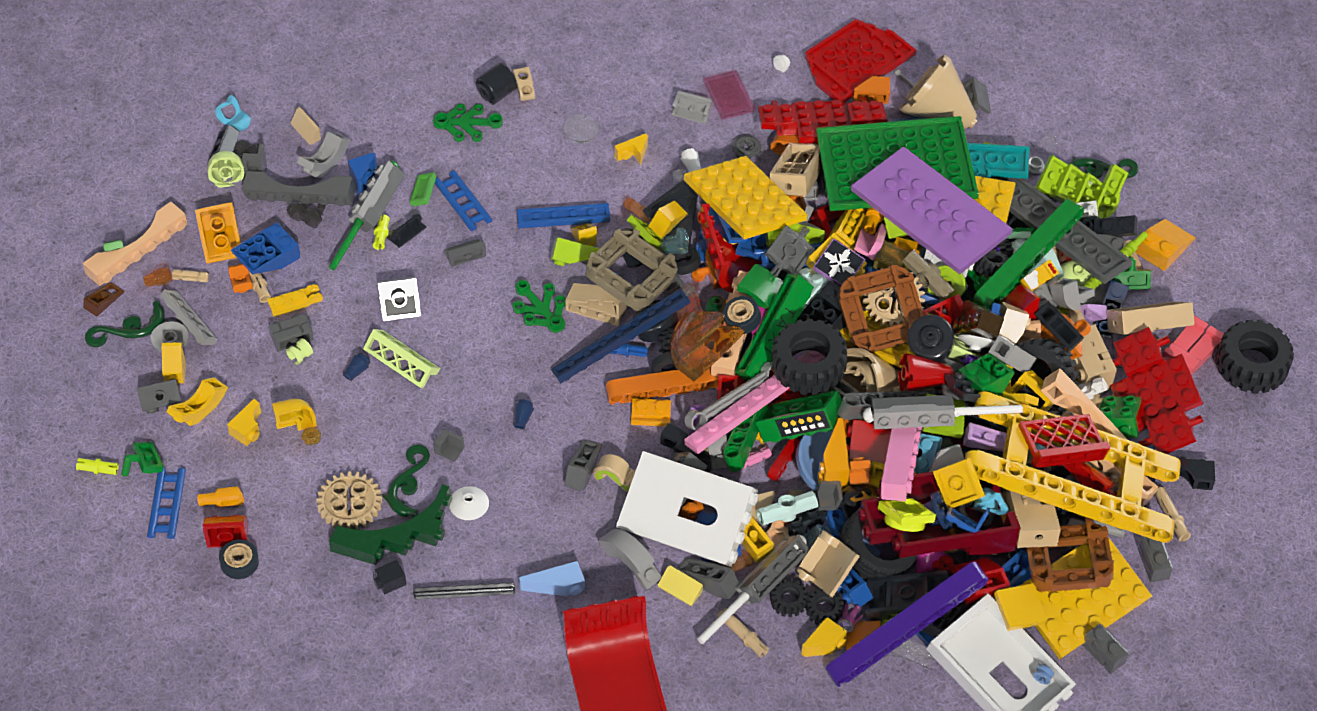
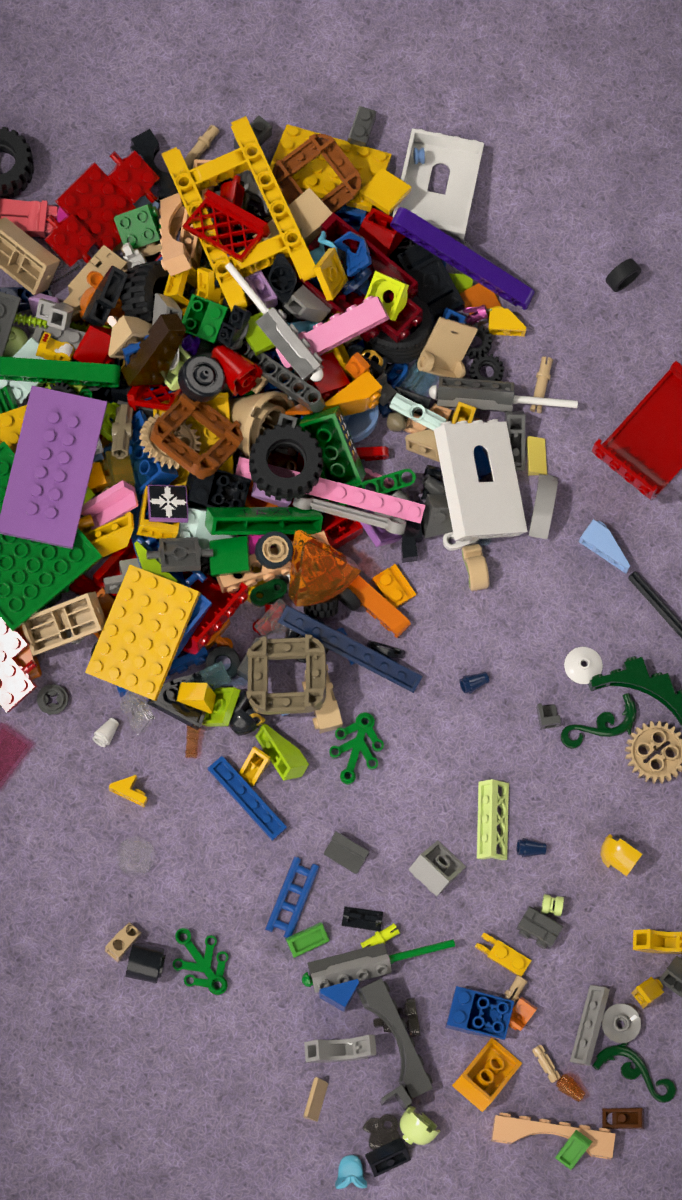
camera: 130 degrees left, 20 degrees up
(244, 424) = (654, 890): yellow arch -> none
(311, 431) = (621, 826): clear yellow plate -> none
(582, 465) = (485, 600): dark grey slope -> none
(601, 370) = (386, 650): none -> black plate
(692, 107) = (42, 775): light grey hinge -> none
(980, 442) = (282, 278): none -> black hat

